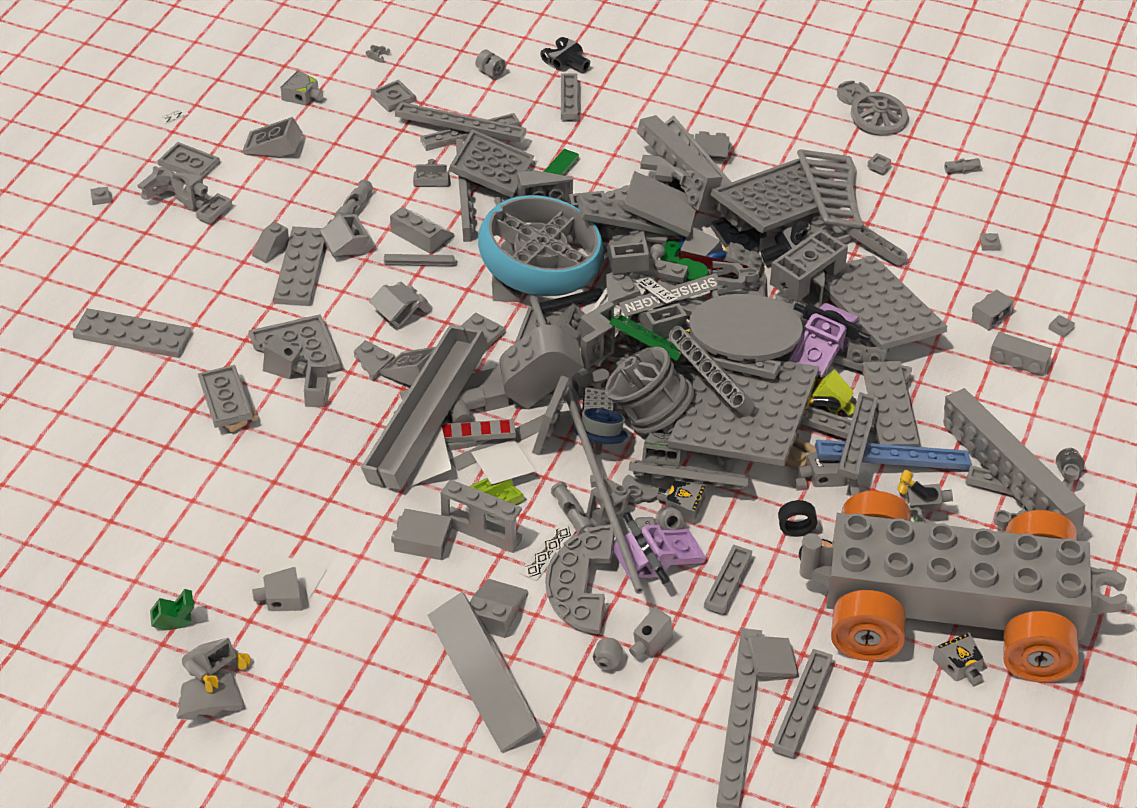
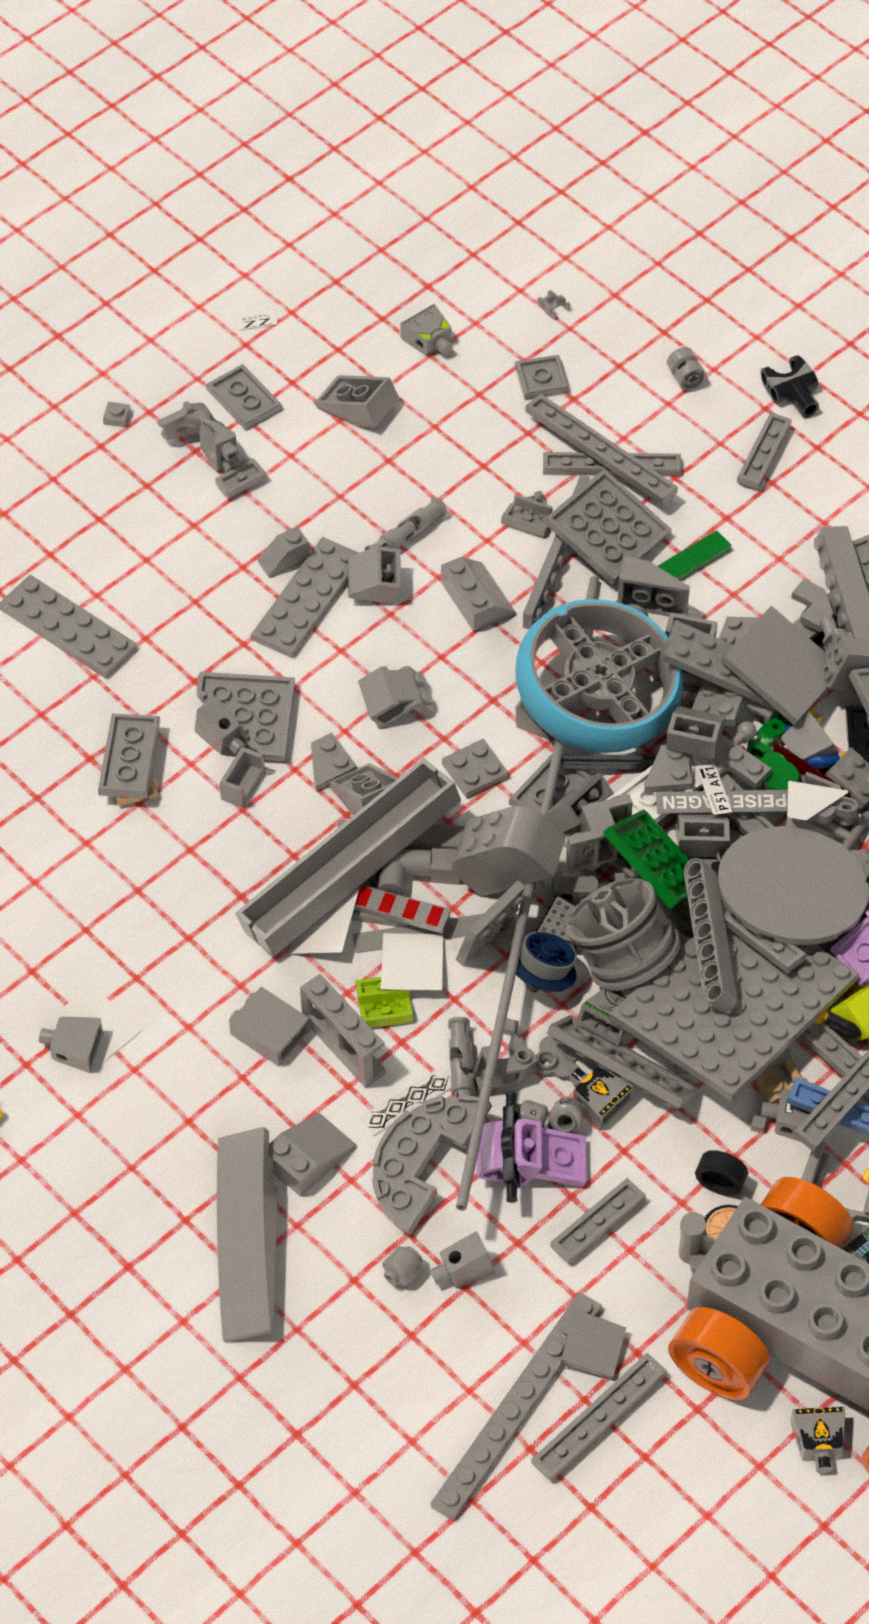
camera: 25 degrees right, 10 degrees up
(418, 259) = (453, 637): light grey axle -> none
(726, 275) = (809, 799): none -> white sticker

